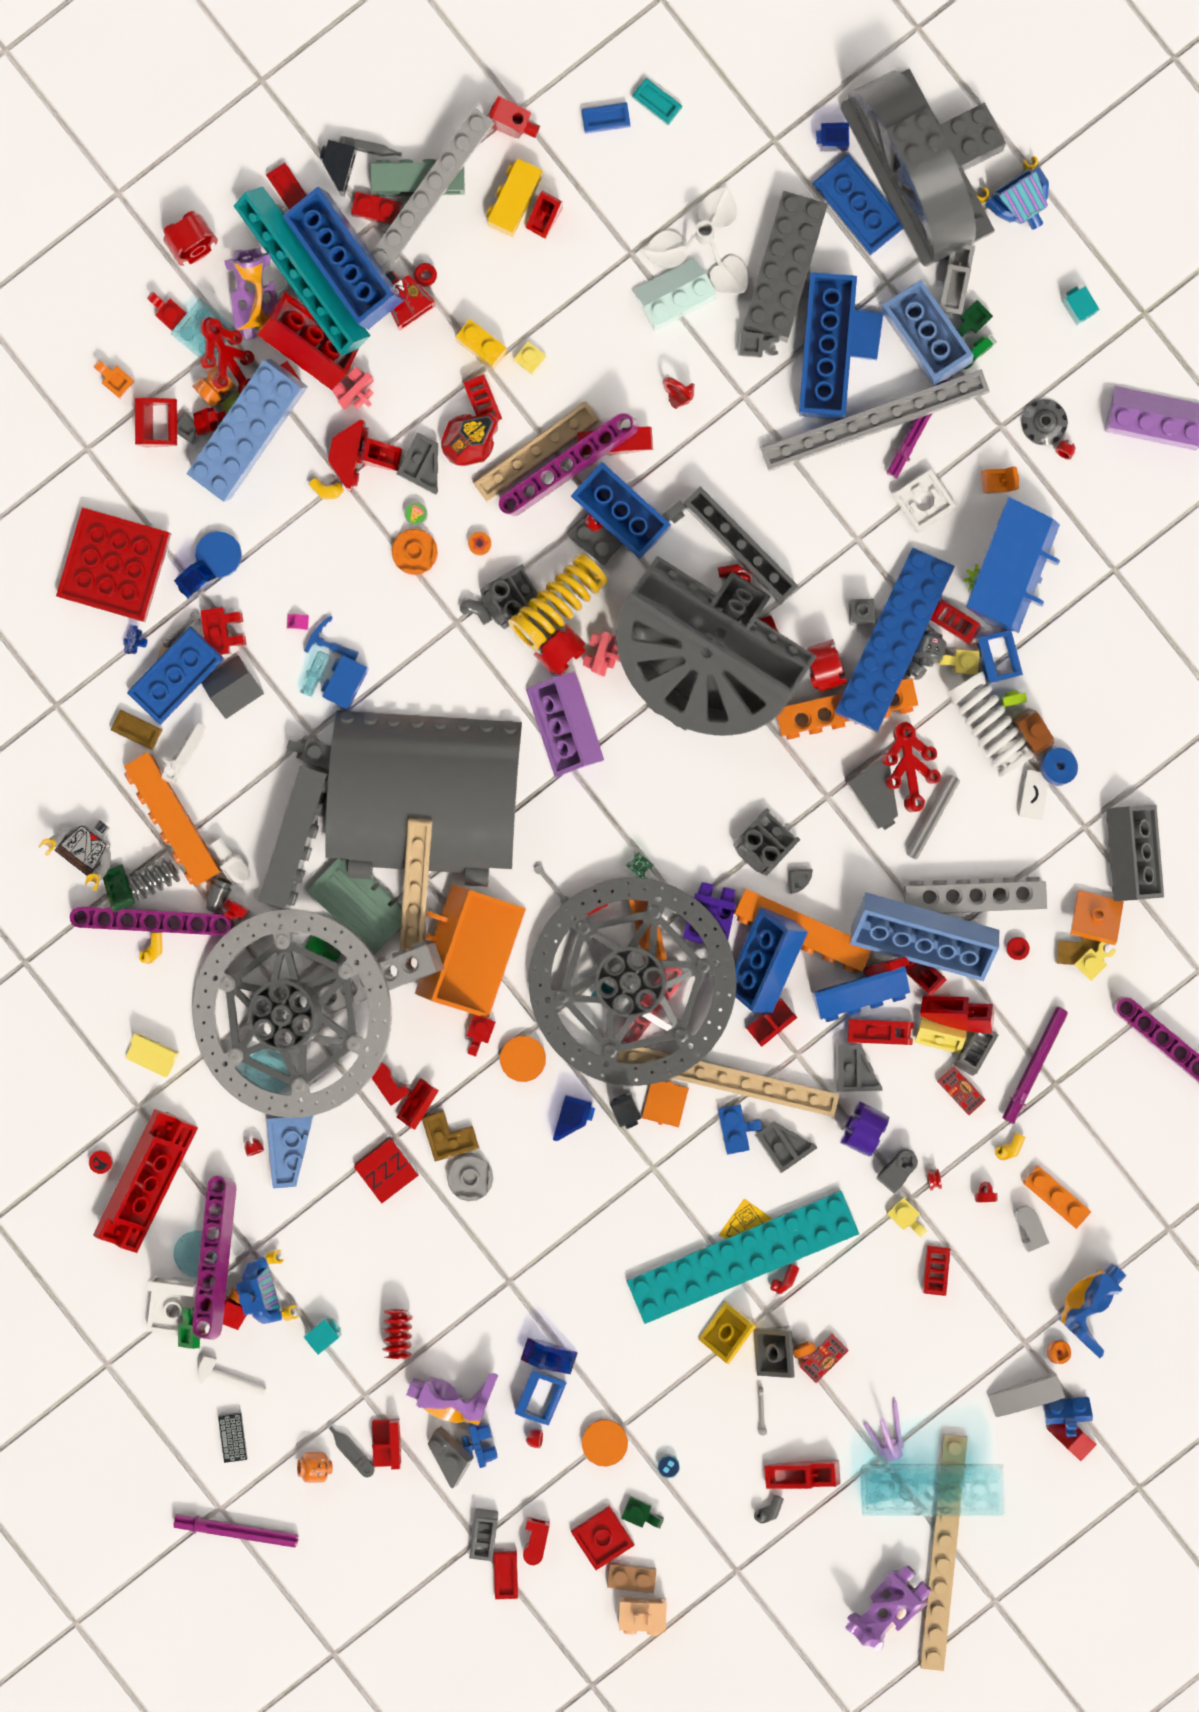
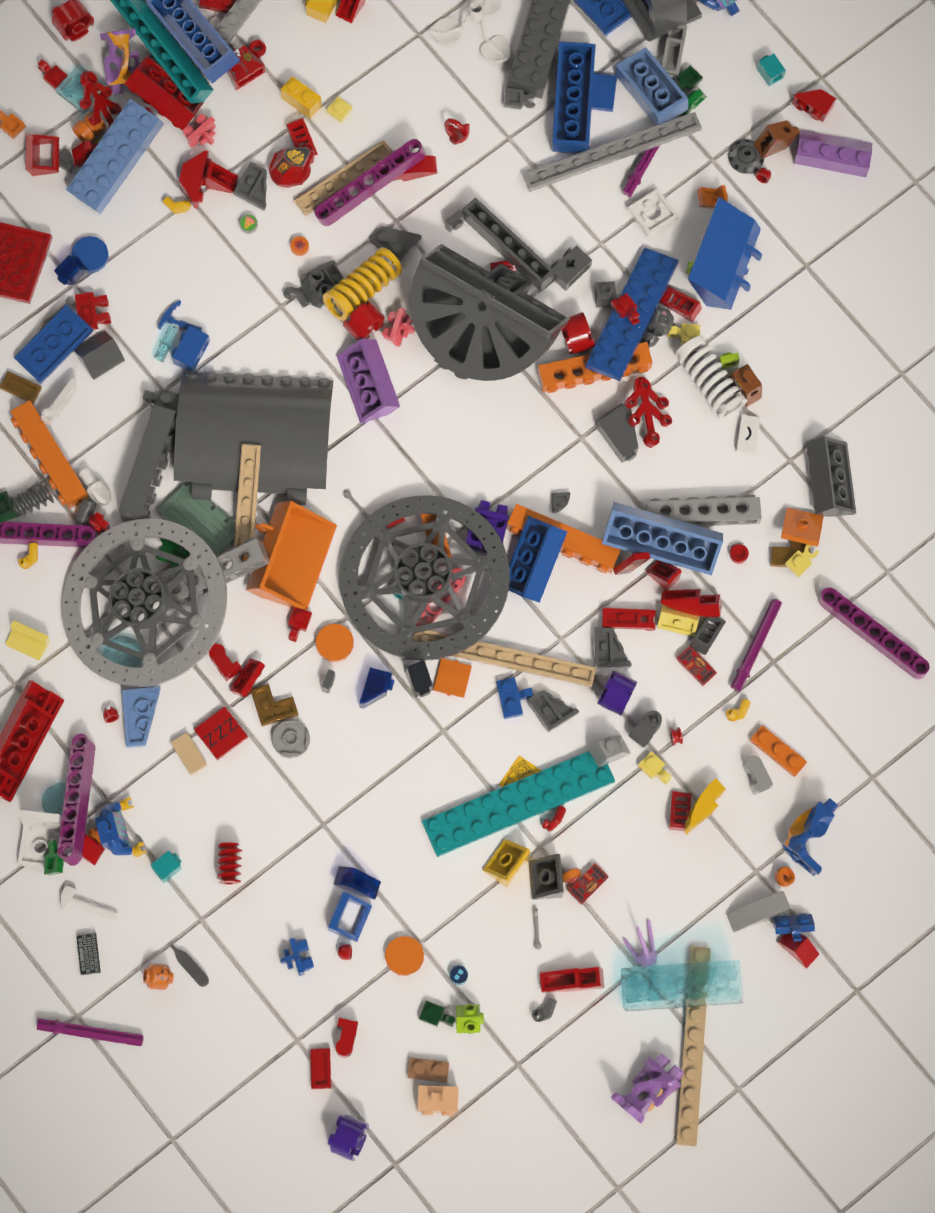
camera: 15 degrees left, 15 degrees down
(134, 640) = (20, 318): clear blue plant -> none
(297, 621) = (152, 305): dark pink piece -> none
(348, 1196) = (188, 754): none -> tan tile
(386, 1443) = (219, 958): red panel -> none
(414, 551) = (247, 252): orange tile -> none
(444, 1402) = (271, 920): medium lavender hips -> none
(450, 1456) = (273, 966): dark grey wing -> none
(487, 1520) = (301, 1017): dark grey slope -> none
(515, 1109) = (328, 682): none -> dark grey tile
(538, 1661) = (348, 1137): none -> dark purple brick
(591, 524) = (388, 228): red hinge -> none
(602, 1537) = (403, 1036): red tile -> none
(621, 510) = (413, 216): blue slope -> none
(639, 865) = (430, 487): clear green wheel -> none
(675, 294) = (454, 63): light aqua slope -> none
(679, 1522) = (468, 1019): none -> lime brick
(765, 843) = (530, 471): dark grey slope -> none
(771, 1024) = (539, 612): red panel -> none
(831, 568) = (573, 257): none -> dark grey brick
(854, 1199) = (609, 750): none -> light grey slope
(861, 992) = (612, 585): blue slope -> none
(886, 635) = (626, 307): none -> red plate
(933, 817) = (667, 452): light grey axle -> none
(964, 1269) = (704, 805): none -> yellow slope
(983, 1197) = (719, 750): red tile -> none
(987, 659) = (706, 330): blue tile -> none
(1049, 768) = (762, 417): blue piece -> none
(1088, 400) = (775, 138): none -> dark orange torso
(1136, 352) = (815, 103): none -> red slope

